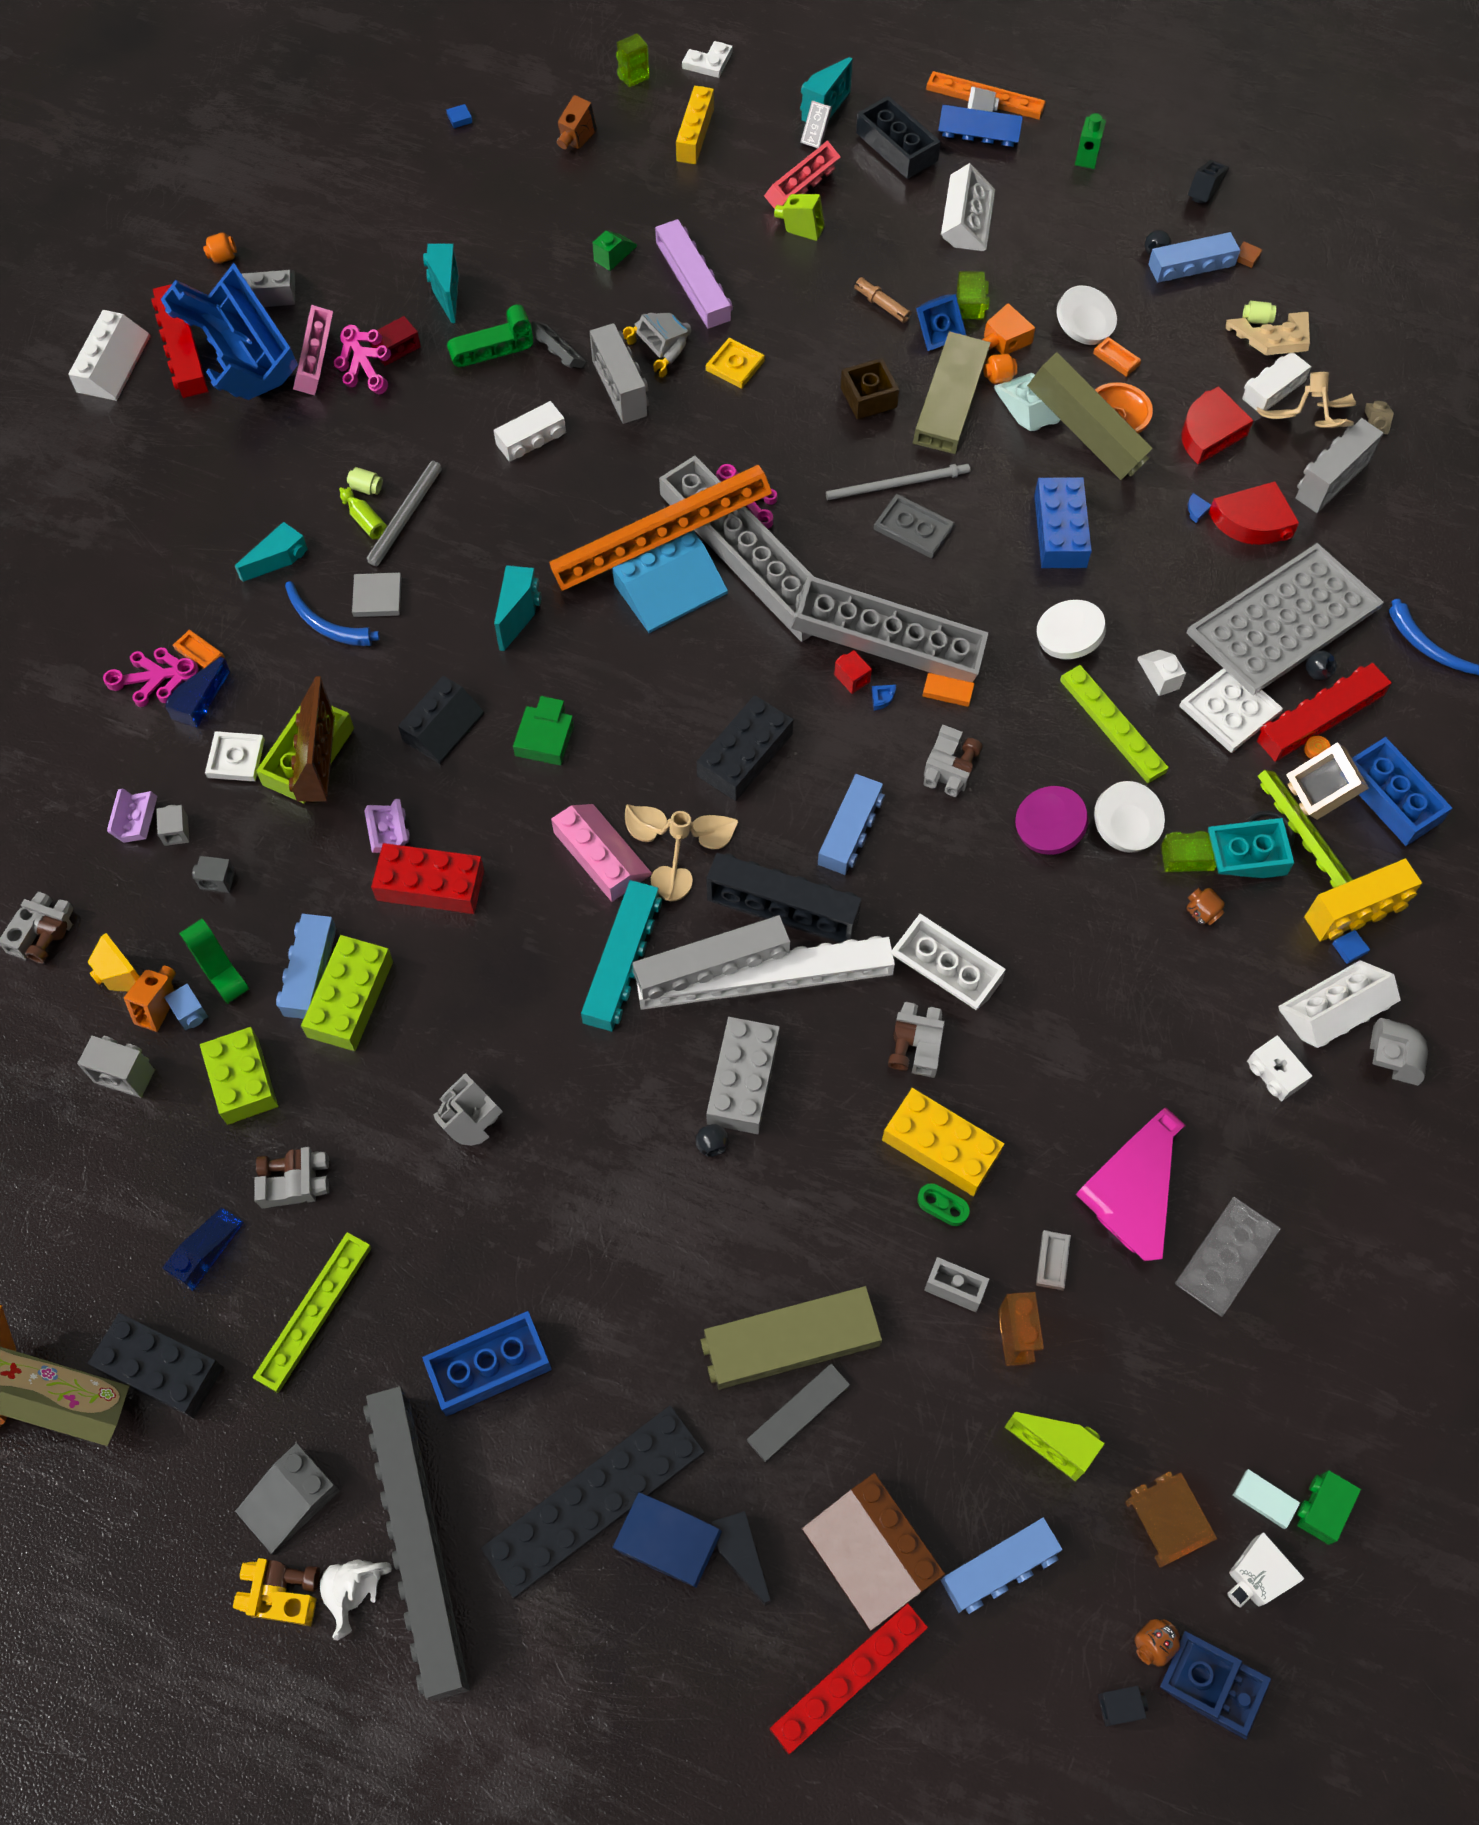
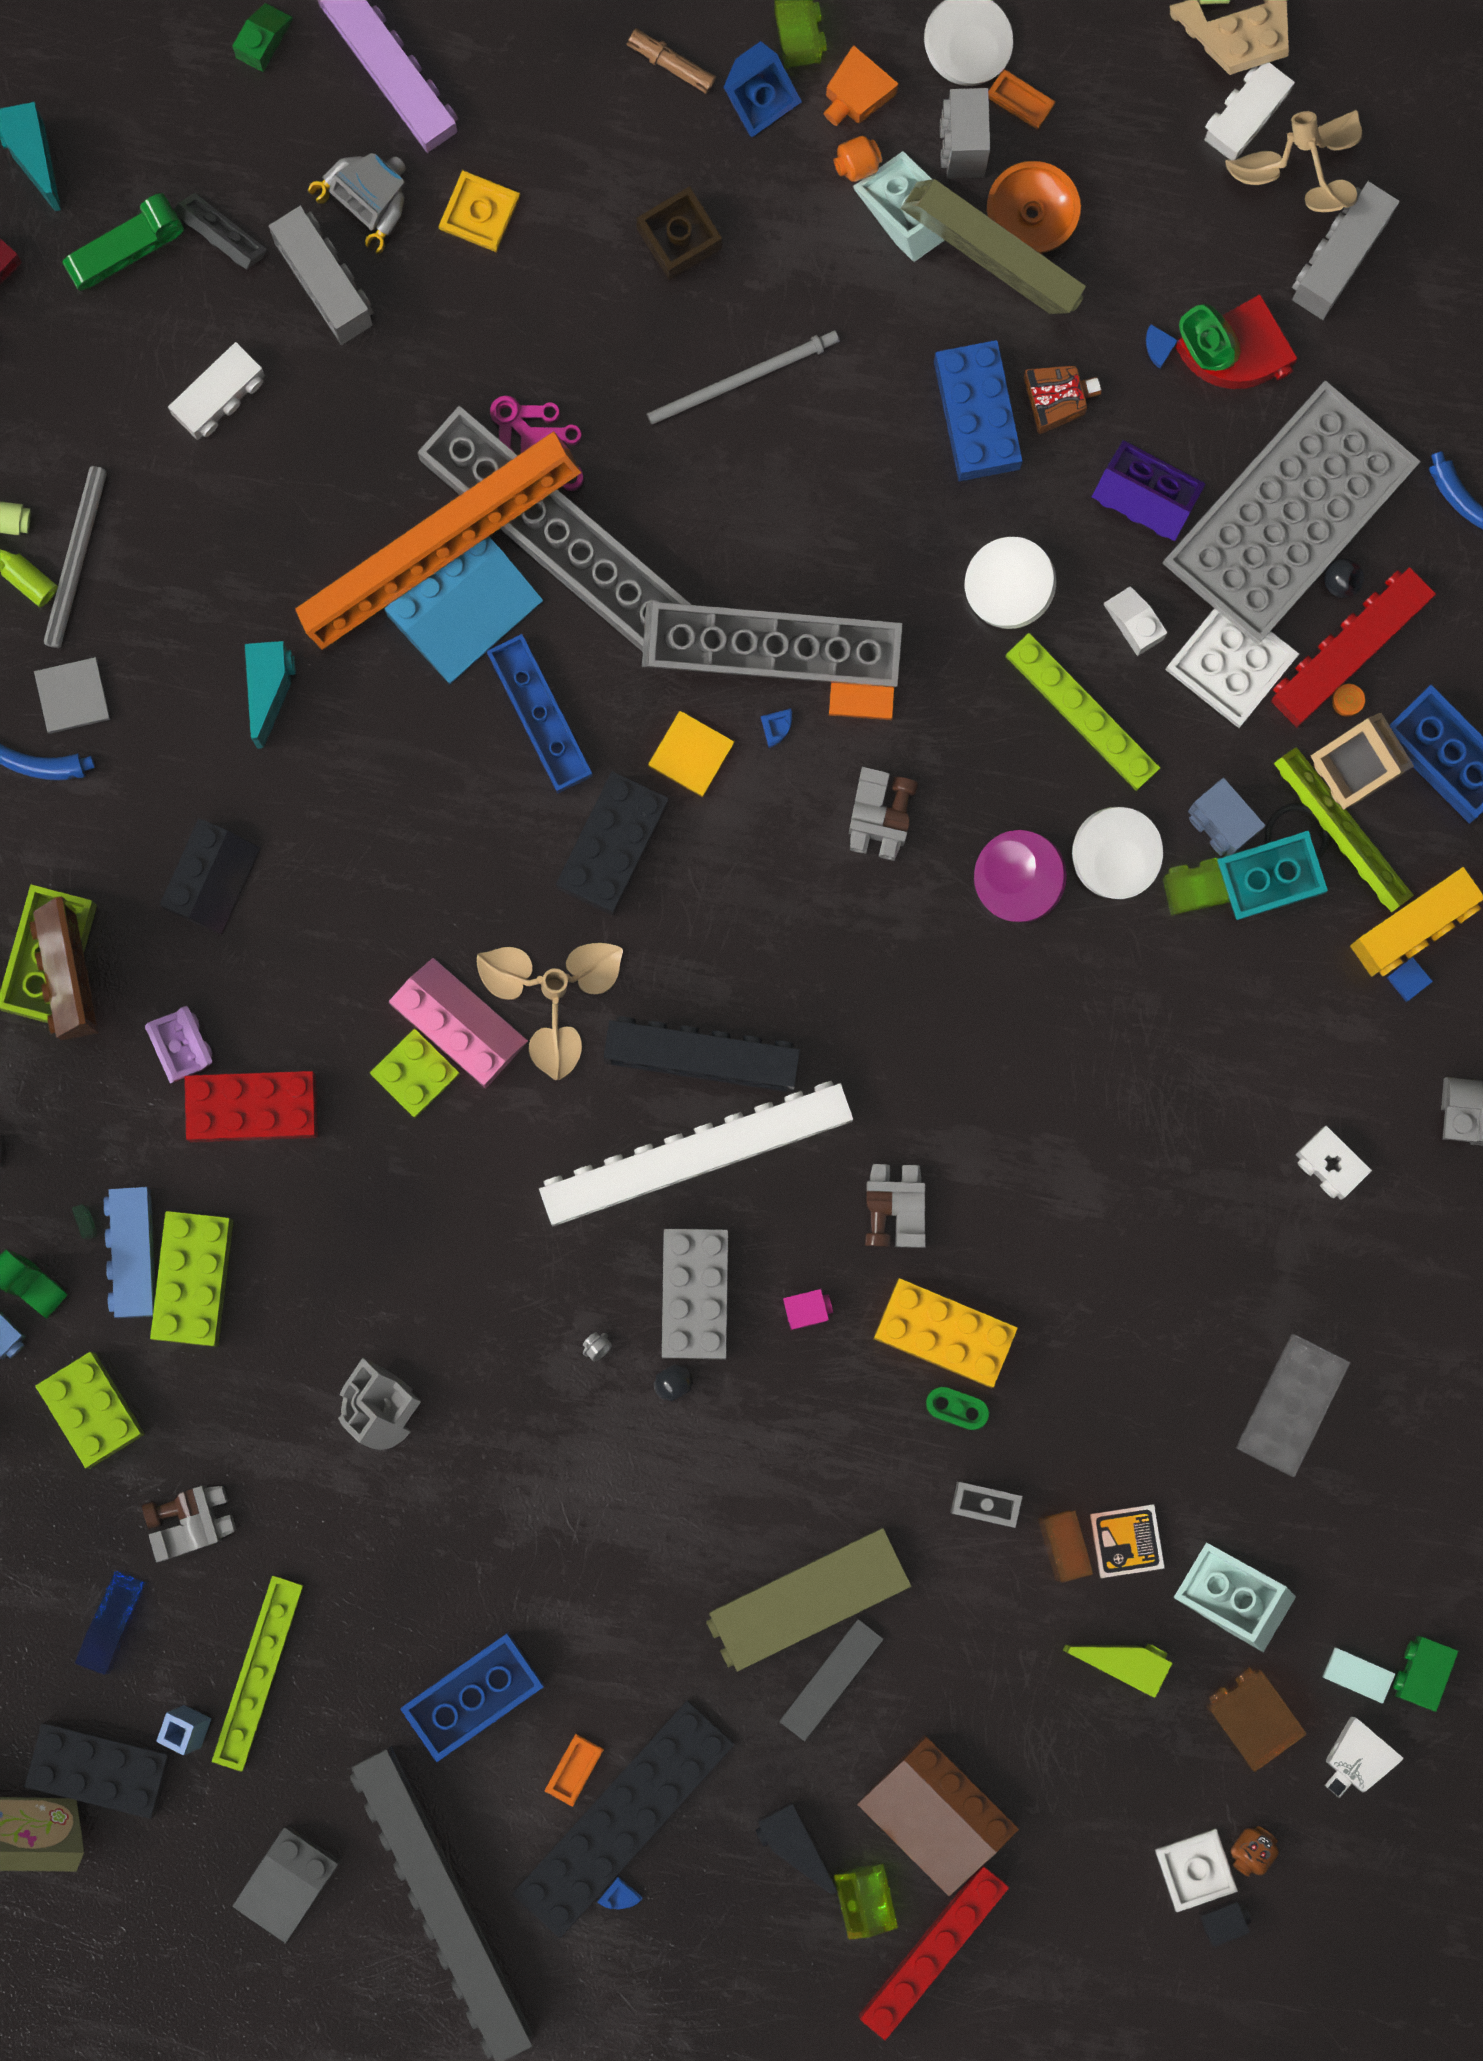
camera: 15 degrees left, 20 degrees up
(236, 1344) = (183, 1730): none -> medium blue brick
(269, 1595) = (296, 1987): yellow hips -> none
(277, 937) = (84, 1221): none -> clear green tile
(346, 1586) = (377, 1963): white piece -> none
(544, 732) = (347, 867): green piece -> none
(559, 880) = (414, 1073): none -> lime plate
(560, 1448) = (574, 1769): none -> orange tile
(575, 1570) = (619, 1896): none -> blue tile
(623, 947) = (514, 1164): teal brick -> none
(656, 1102) = (596, 1346): none -> light grey plate
(667, 1539) = (714, 1849): dark blue slope -> none
(709, 658) = (539, 713): none -> blue piece
(711, 957) = (629, 1158): light grey brick -> none
(794, 1616) = (865, 1901): none -> clear neon green brick
(815, 703) = (691, 753): none -> yellow tile
(832, 1103) = (807, 1309): none -> dark pink brick
(850, 824) = (767, 927): medium blue brick -> none
(852, 671) = (731, 700): red brick -> none
(914, 526) = (776, 447): dark grey tile -> none
(949, 962) = (917, 1106): white slope -> none
(951, 393) = (795, 211): brick -> none
(1001, 1565) = (1079, 1804): medium blue brick -> none
(1053, 1260) = (1093, 1448): light grey tile -> none
(1073, 1342) = (1127, 1541): none -> tile
(1082, 344) = (965, 133): none -> light grey brick
(1100, 1651) = (1196, 1870): none -> white tile
(1121, 523) = (1058, 395): none -> torso
(1134, 1187) = (1175, 1346): dark pink panel -> none
(1164, 1407) = (1235, 1596): none -> light aqua slope
(1178, 591) = (1148, 490): none -> dark purple slope
(1205, 906) = (1225, 961): dark orange head -> none
(1213, 425) = (1166, 202): brick -> none
(1216, 1685) = (1320, 1882): dark blue slope -> none
(1217, 800) = (1225, 818): none -> sand blue brick
(1238, 494) = (1209, 338): none -> green piece
(1340, 1003) = (1400, 1061): white slope -> none
(1379, 415) = (1396, 144): dark tan bracket -> none

